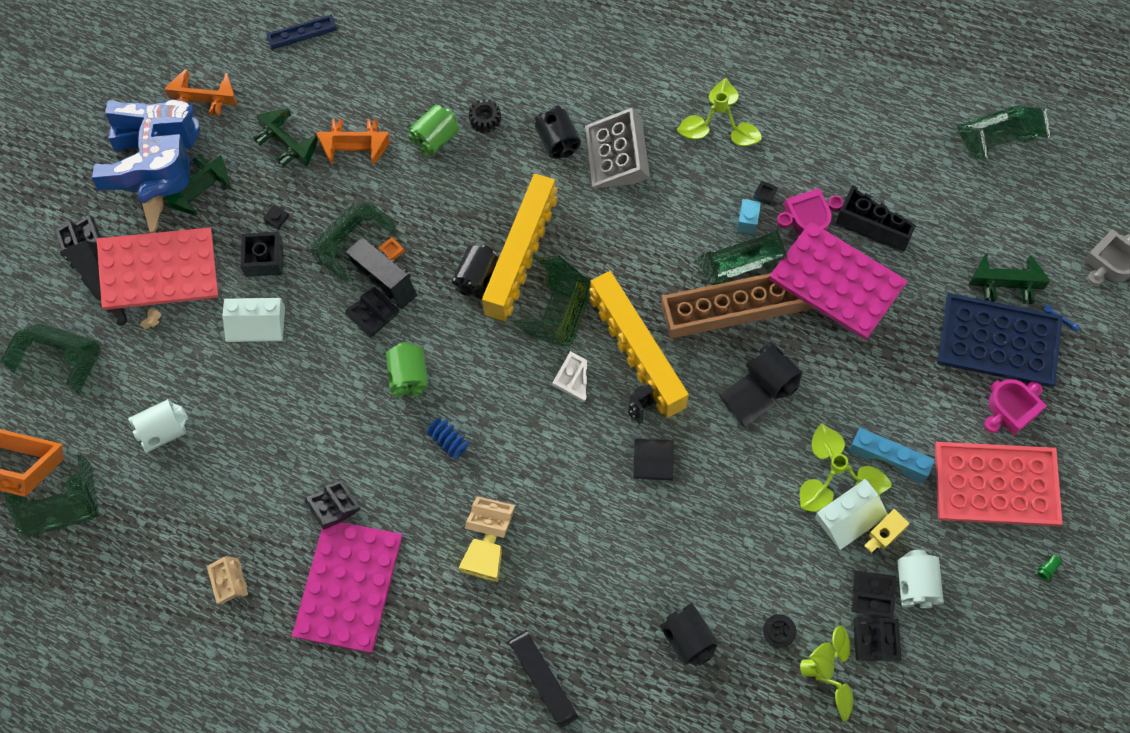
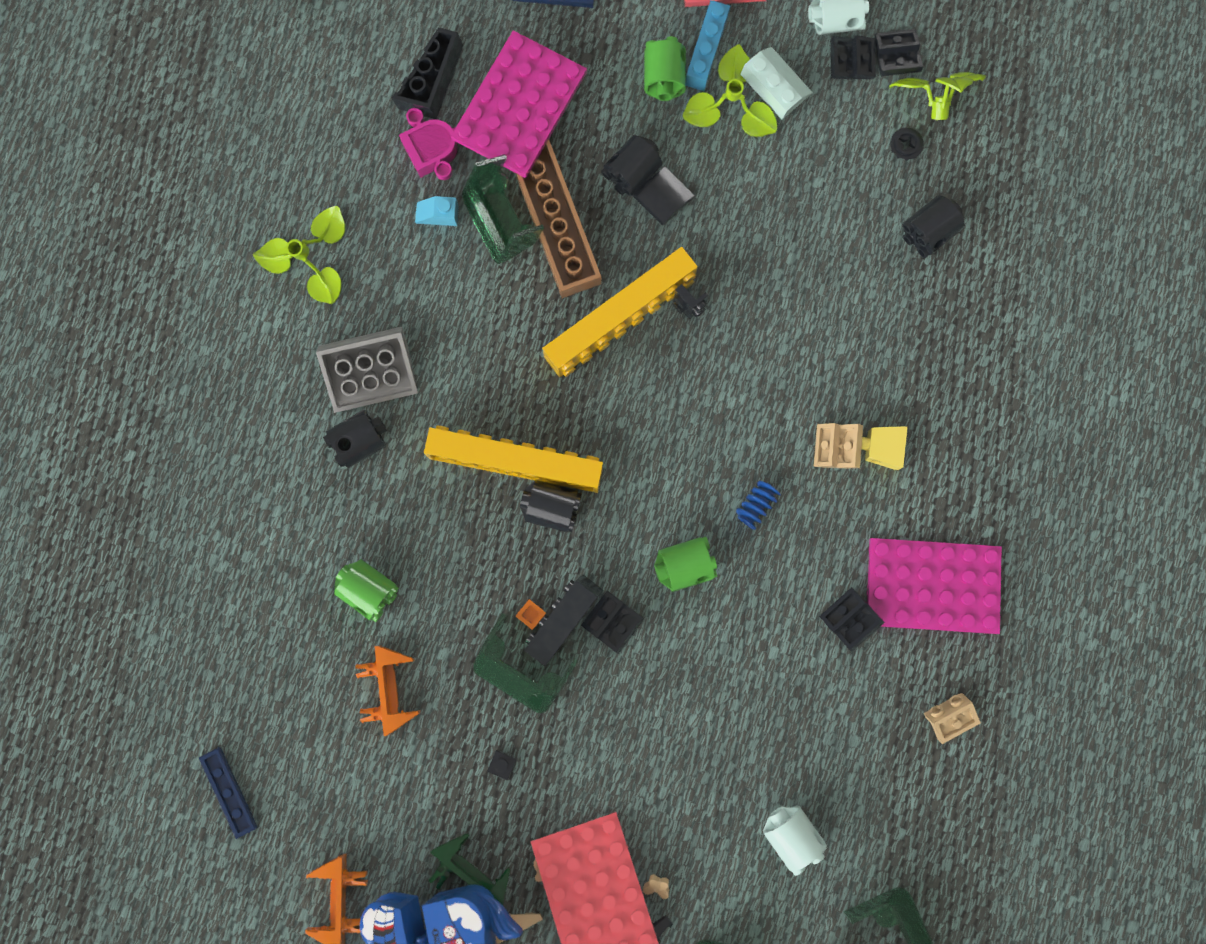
camera: 100 degrees left, 15 degrees up
(253, 319) = (645, 759): light aqua slope -> none
(261, 254) = (559, 768): black brick -> none
(271, 123) = (380, 797): dark green hose -> none
(488, 124) = (321, 533): black tyre -> none
(543, 679) = (997, 367): black beam -> none
(565, 304) = (581, 404): clear green windscreen -> none
(572, 377) = (662, 382): white wing -> none
(653, 459) = (745, 285): black slope -> none
(765, 192) = (406, 196): black plate -> none
(867, 411) = (664, 69): none -> bright green cylinder
(892, 525) = (792, 44): light yellow torso -> none

